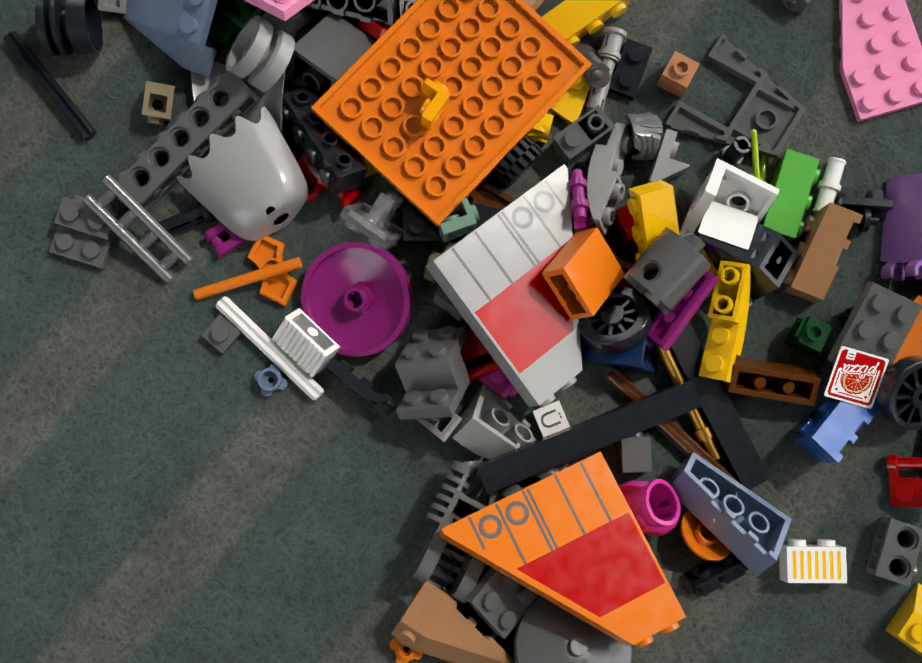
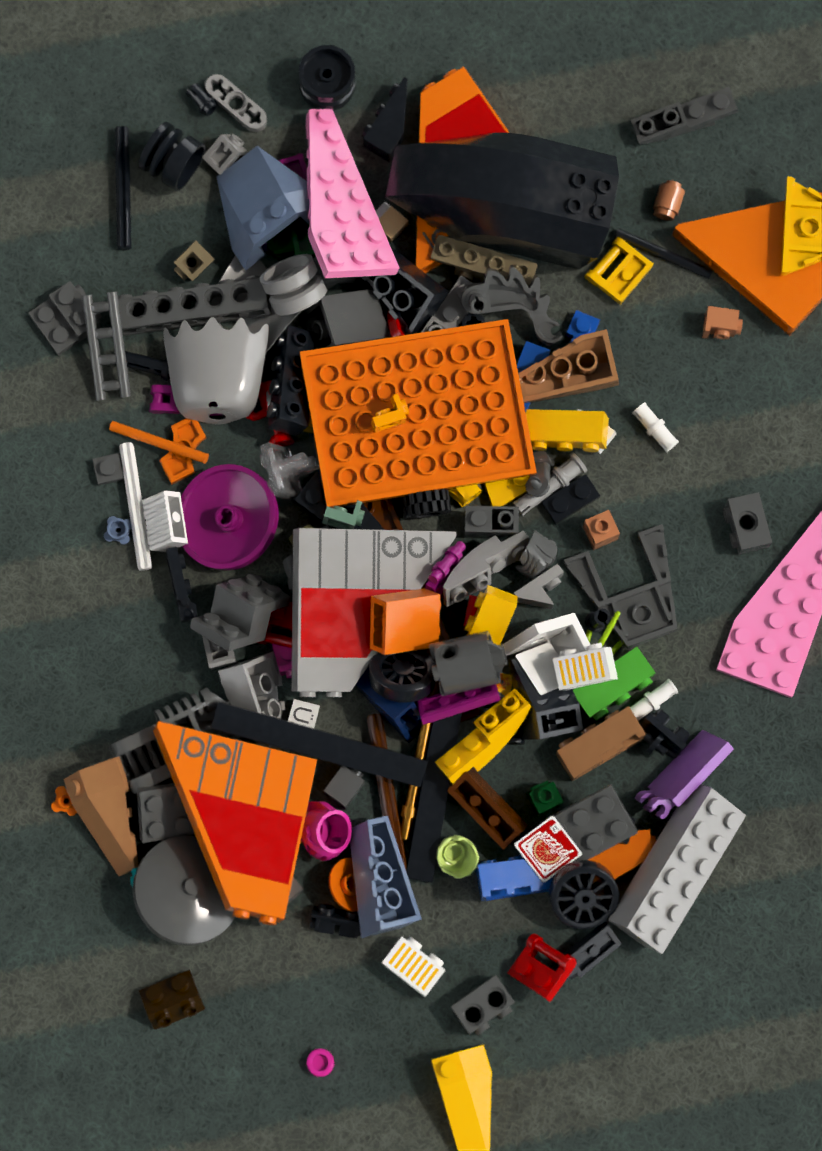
camera: 30 degrees right, 5 degrees down
(769, 197) = (585, 667): none -> white brick
(777, 440) = (457, 856): none -> yellowish green hair

